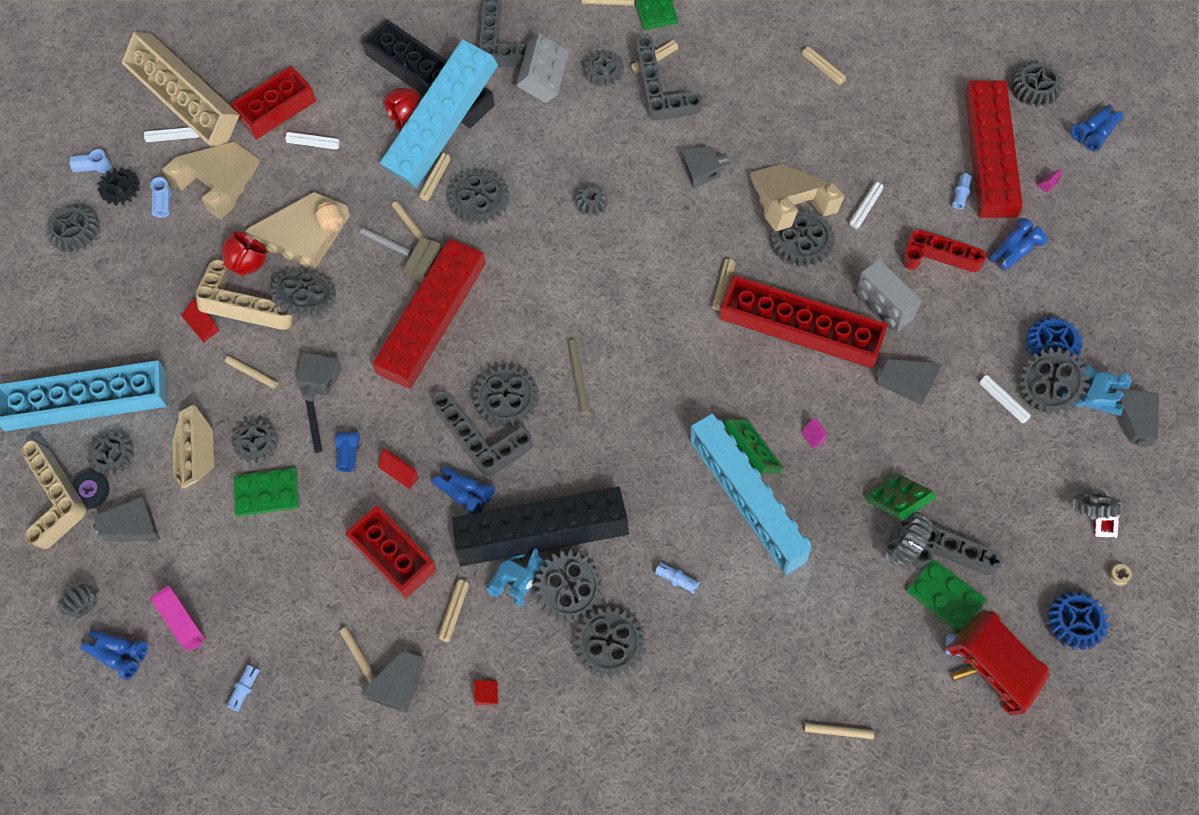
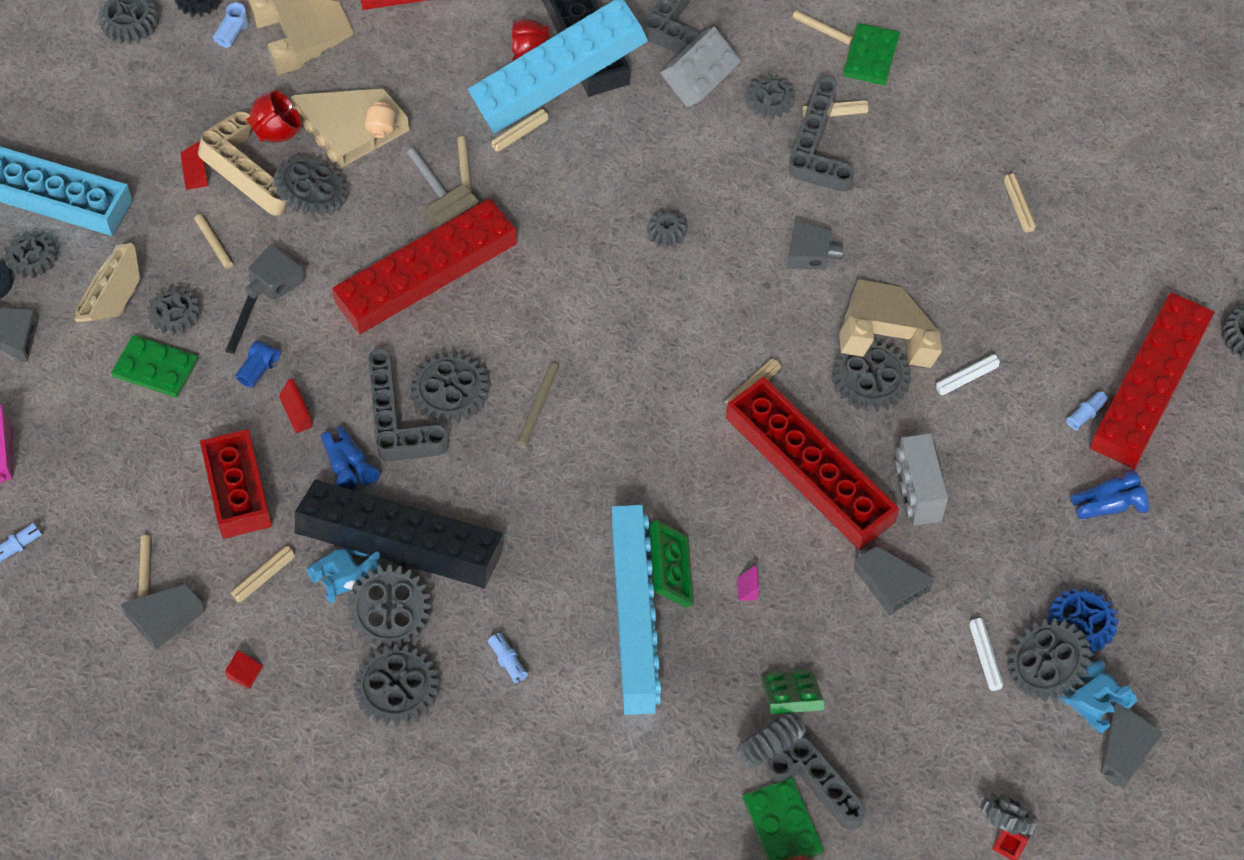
camera: 25 degrees right, 5 degrees down
(312, 140) = (418, 36): white axle -> none
(478, 196) = (556, 175): dark grey gear -> none
(967, 257) = (1045, 486): red beam -> none
(1050, 180) = (1198, 447): dark pink slope -> none

